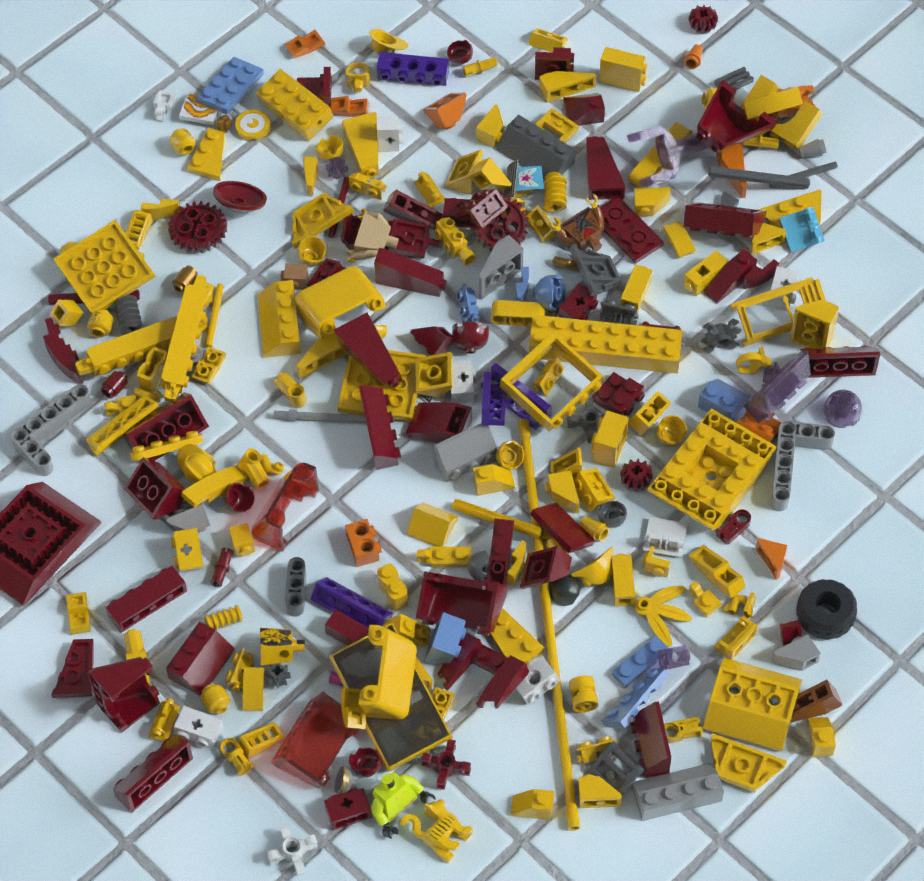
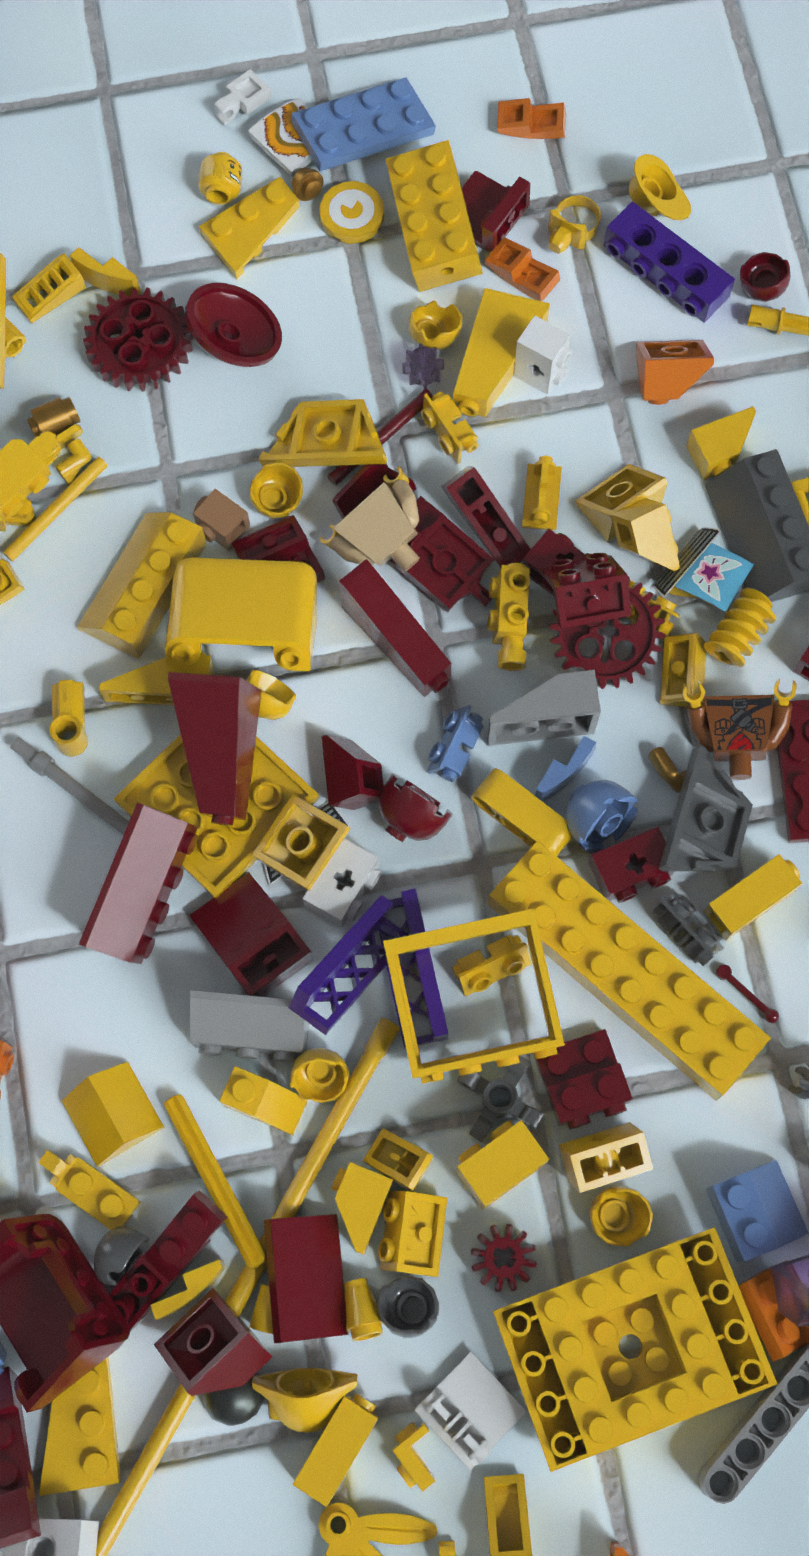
camera: 35 degrees right, 15 degrees up
(311, 171) = (374, 353): yellow slope -> none
(733, 527) = (598, 1478): dark red piece -> none

